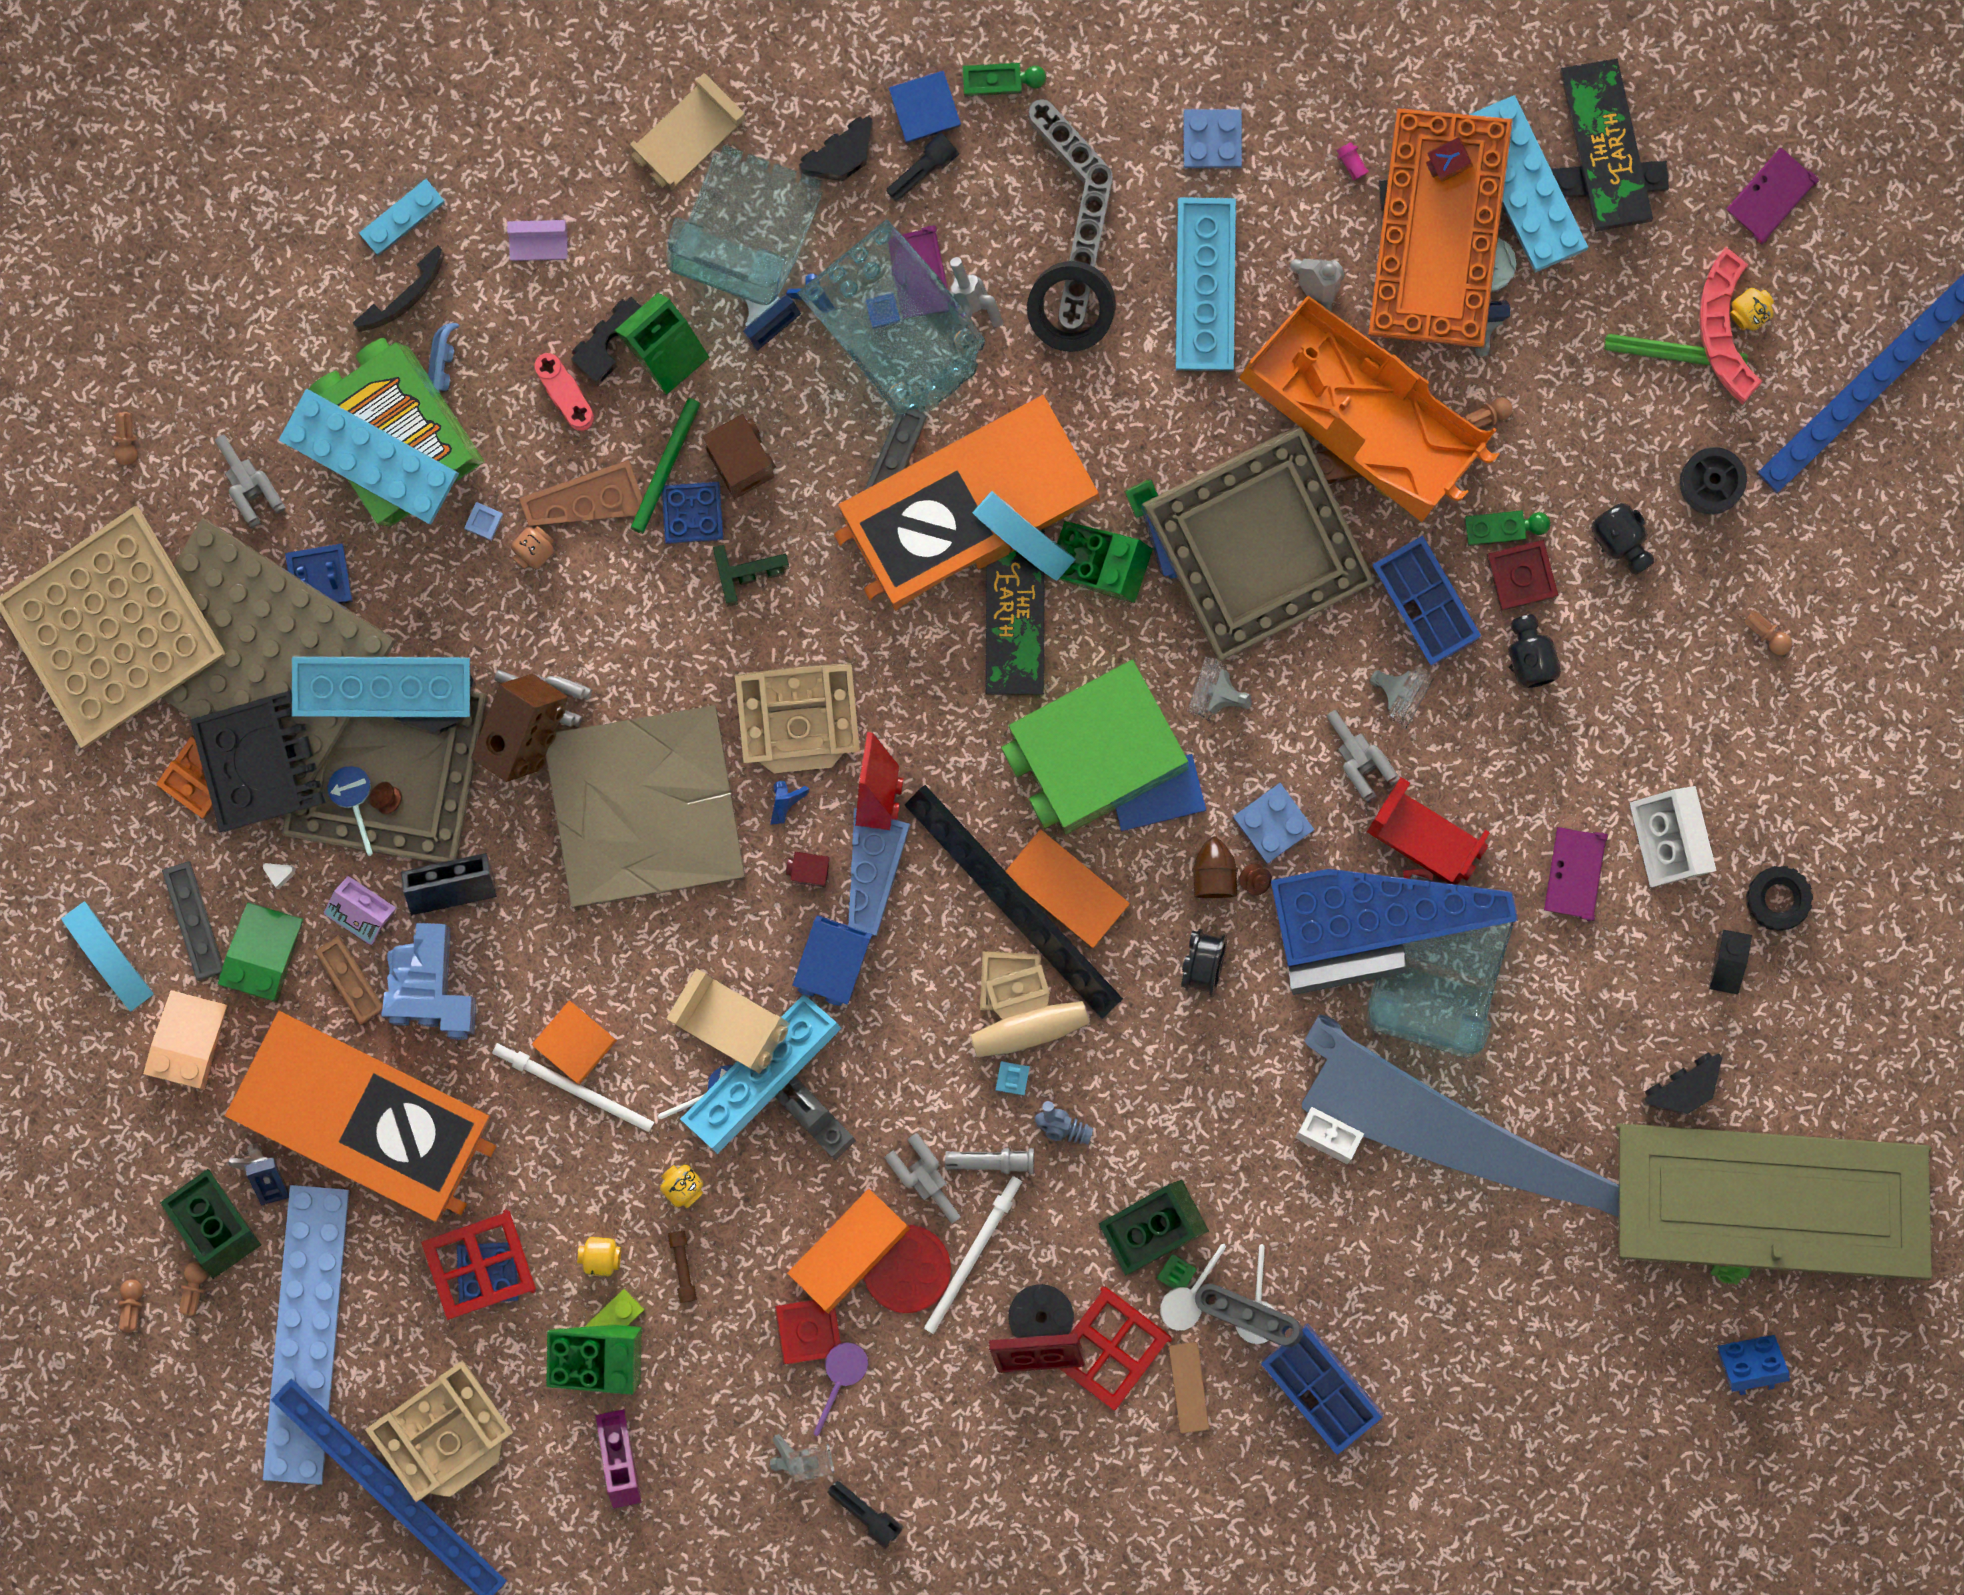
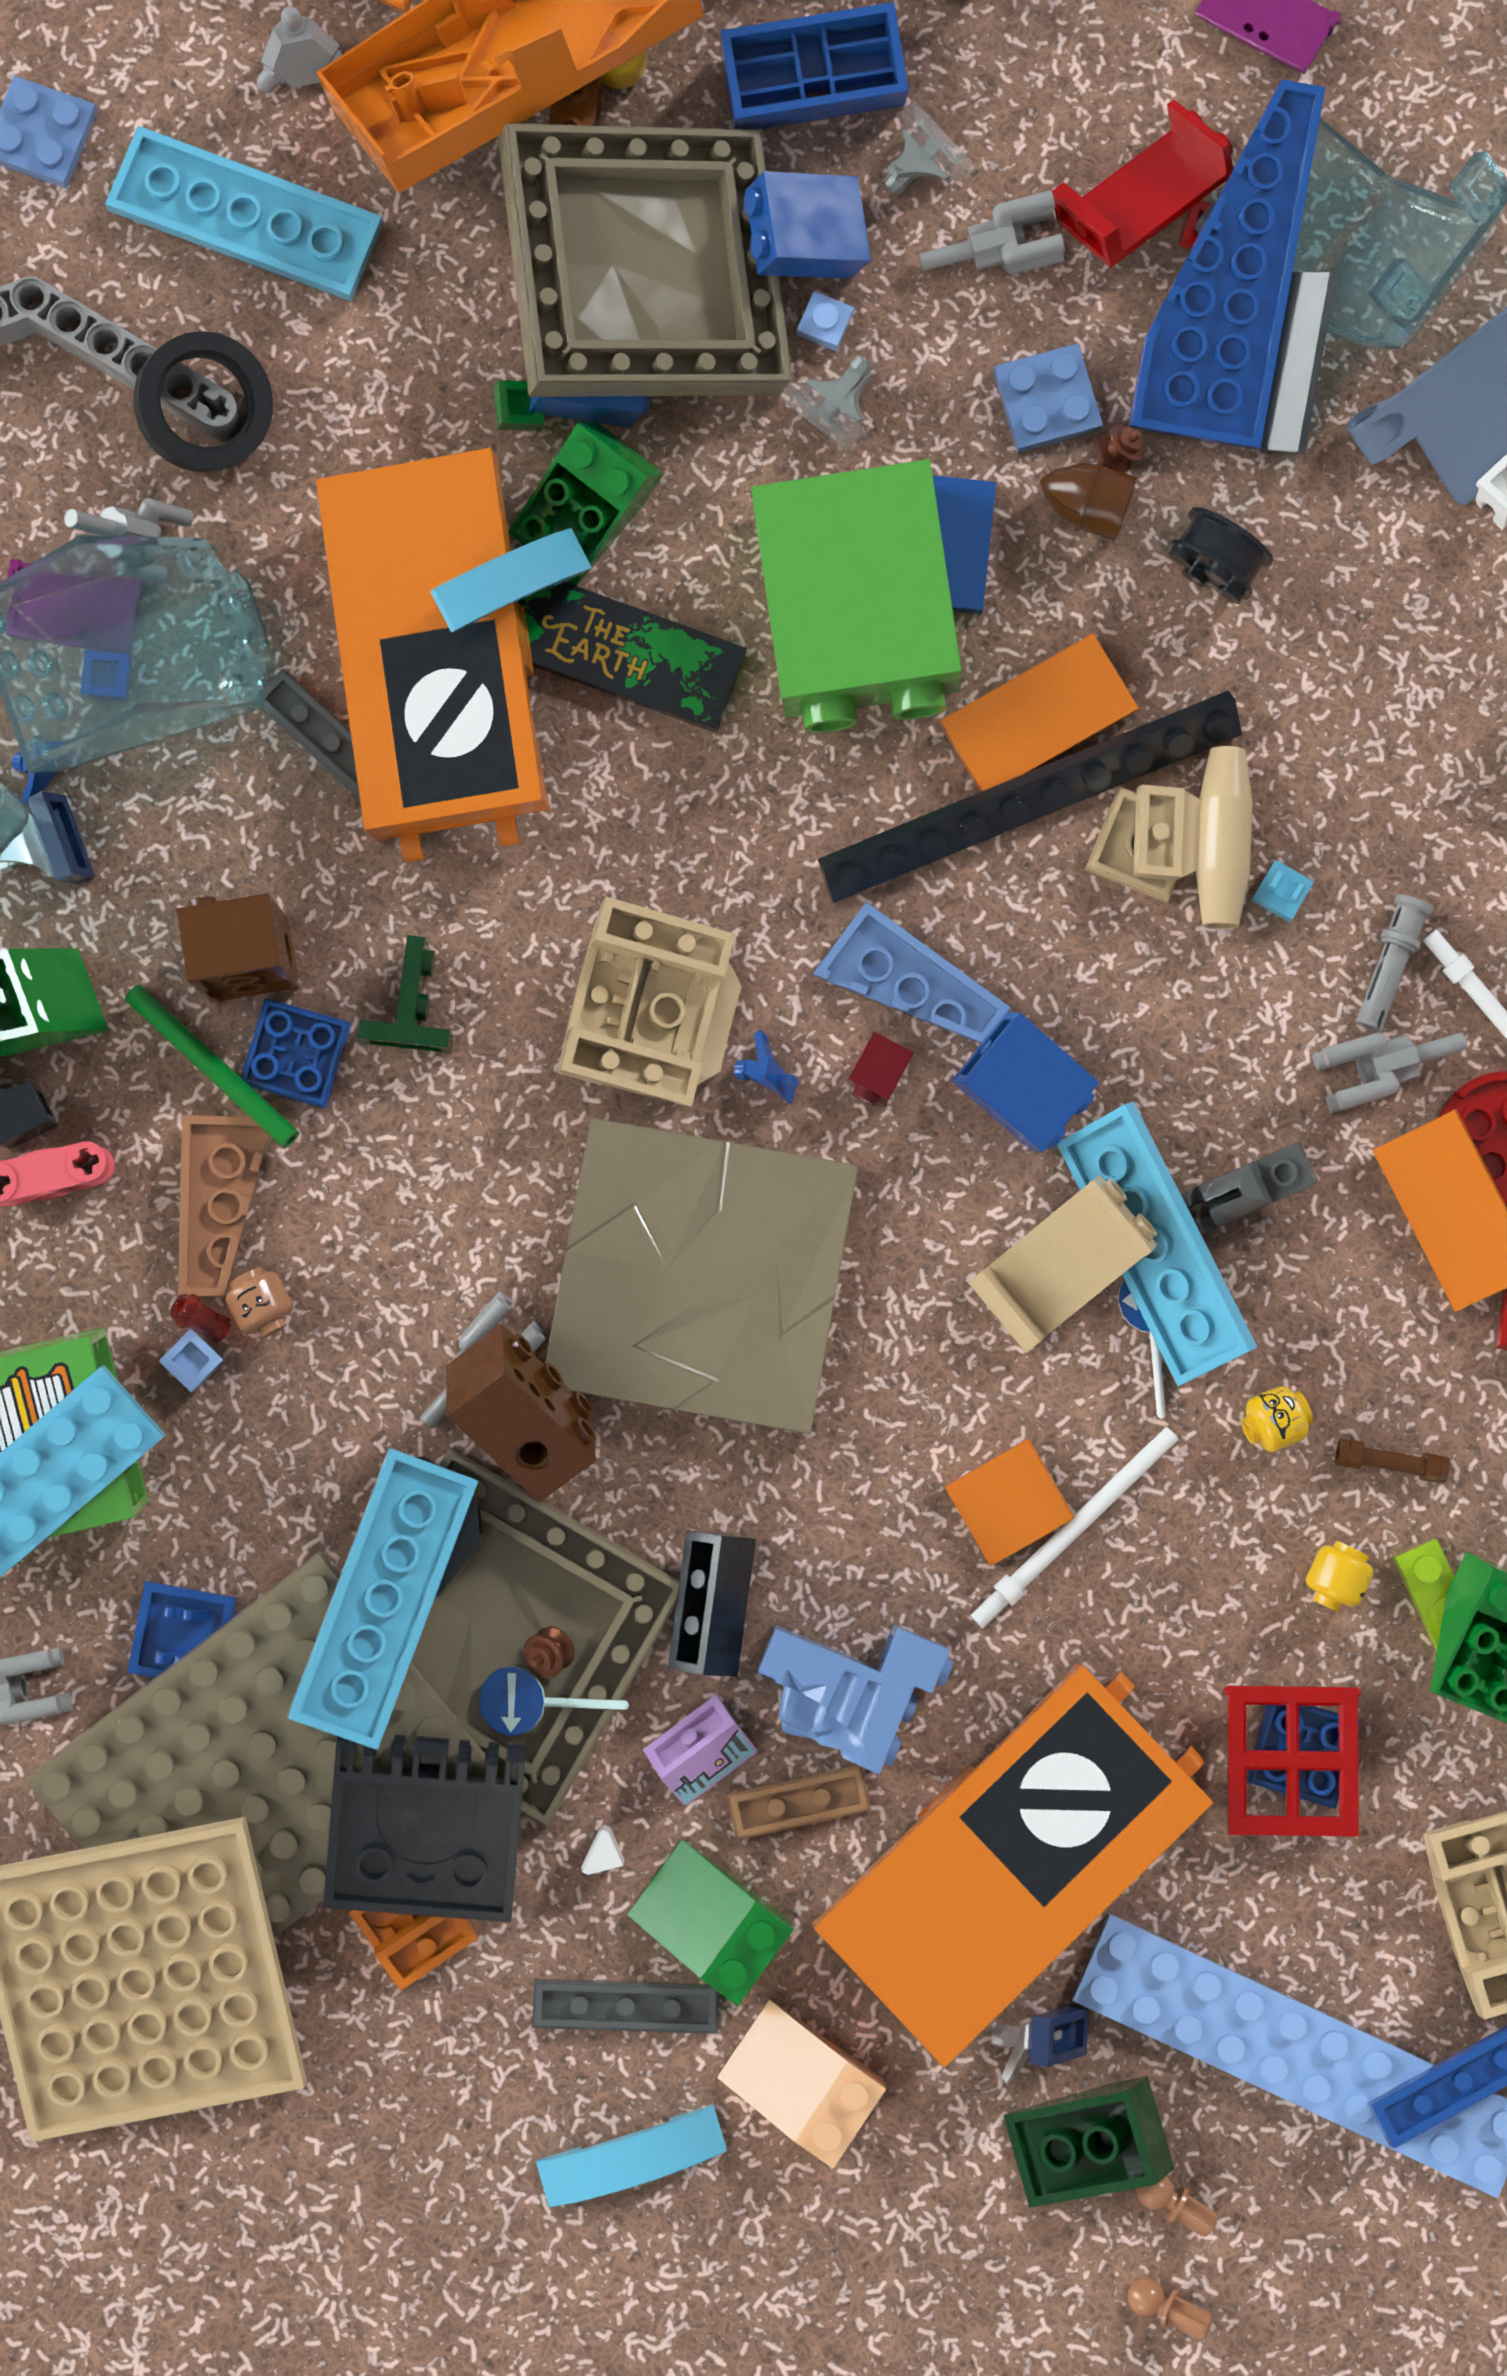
camera: 70 degrees left, 0 degrees up
(511, 511) = (192, 1313): none -> clear red pin
(878, 786) = (799, 925): red slope -> none
(1058, 1125) = (1375, 847): sand blue piece -> none
(1271, 667) = (825, 321): none -> light blue plate
(1321, 633) = (807, 225): none -> brick

